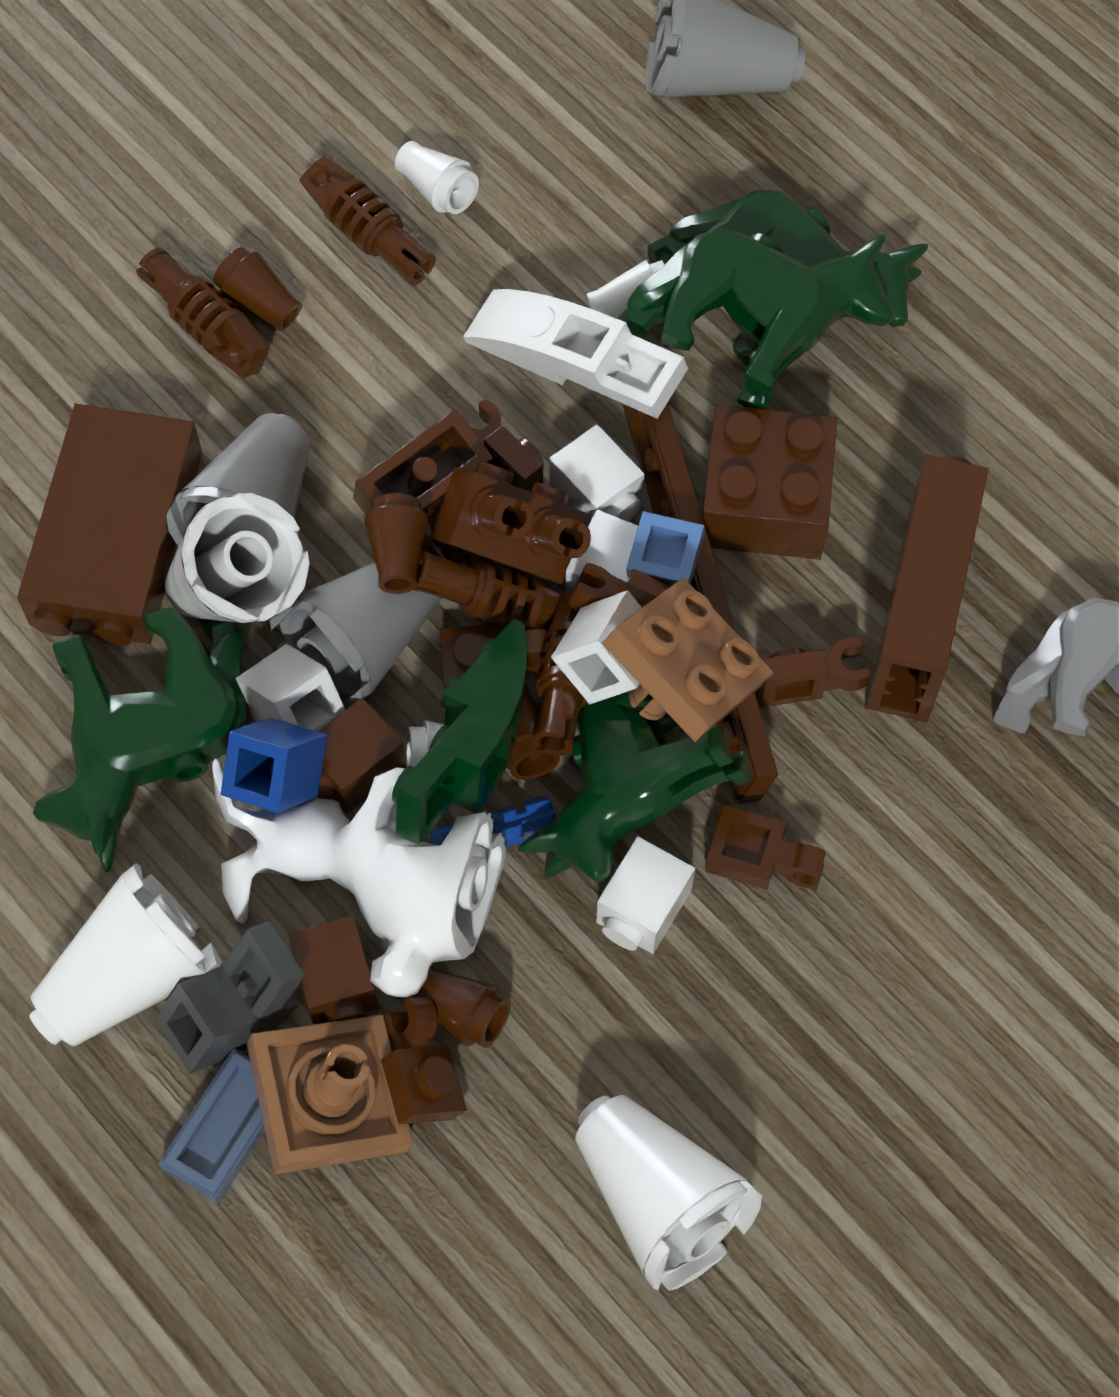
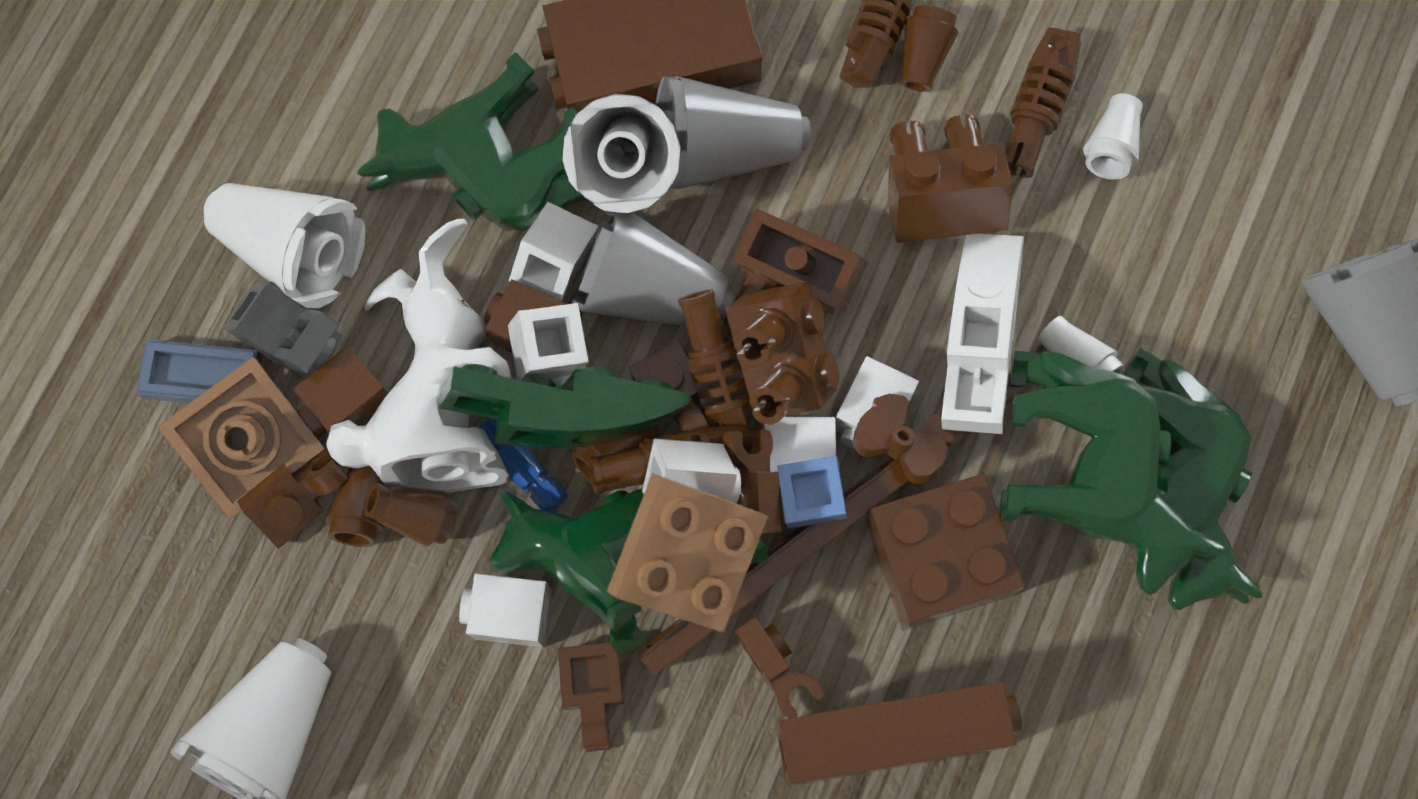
camera: 70 degrees right, 10 degrees up
(273, 764) = (468, 265): blue brick -> none
(396, 539) = (709, 266): reddish brown cone -> none
(401, 714) = (548, 341): none -> white brick
(415, 328) = (947, 189): none -> reddish brown brick
(502, 942) = (413, 512): none -> reddish brown cone
(507, 451) = (860, 329): reddish brown plate -> none
(665, 443) = (883, 432): none -> reddish brown piece

